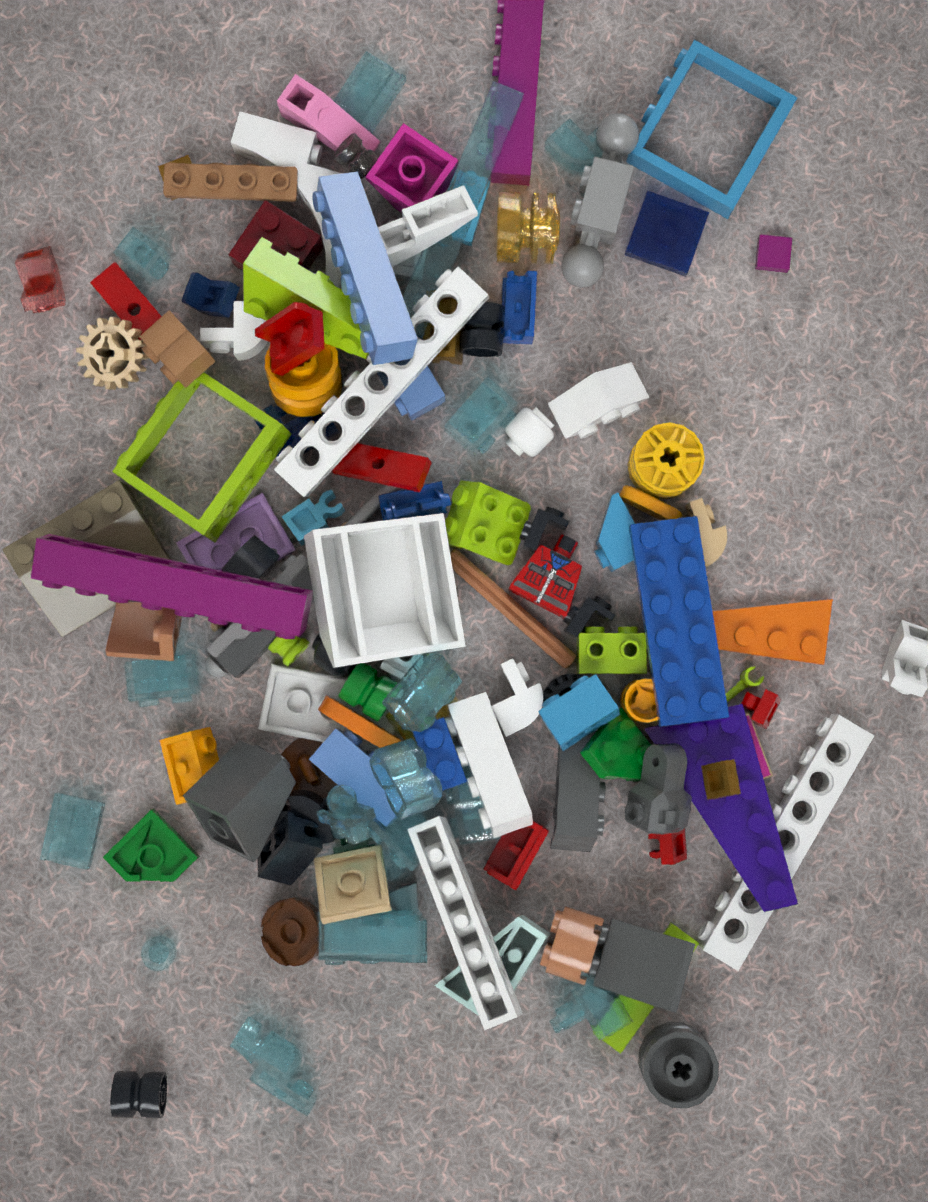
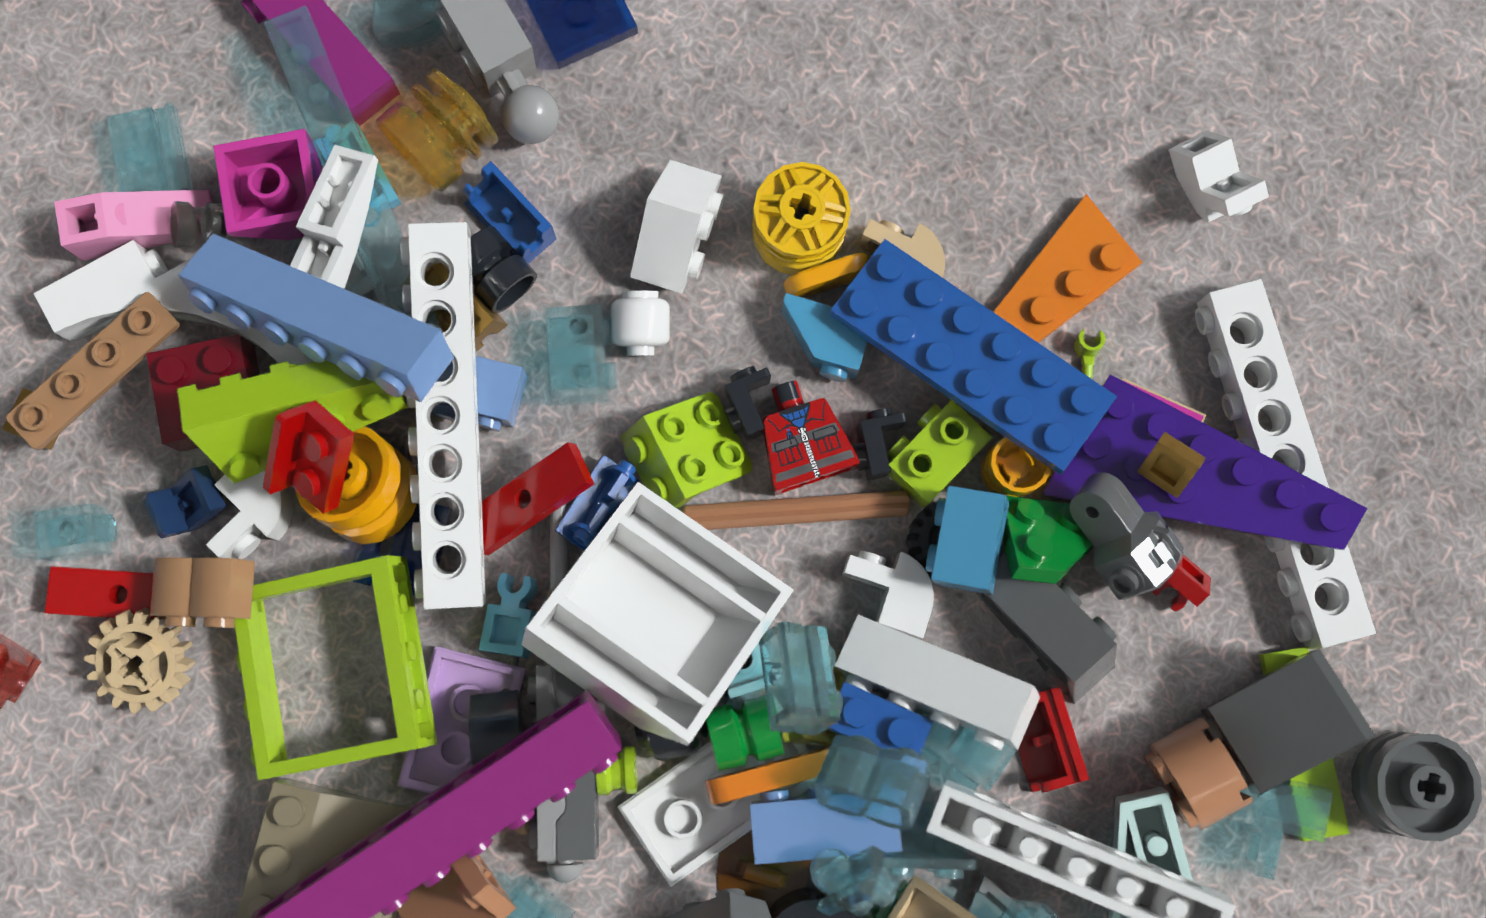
camera: 50 degrees left, 5 degrees down
(763, 707) = (1129, 360): red tile -> none

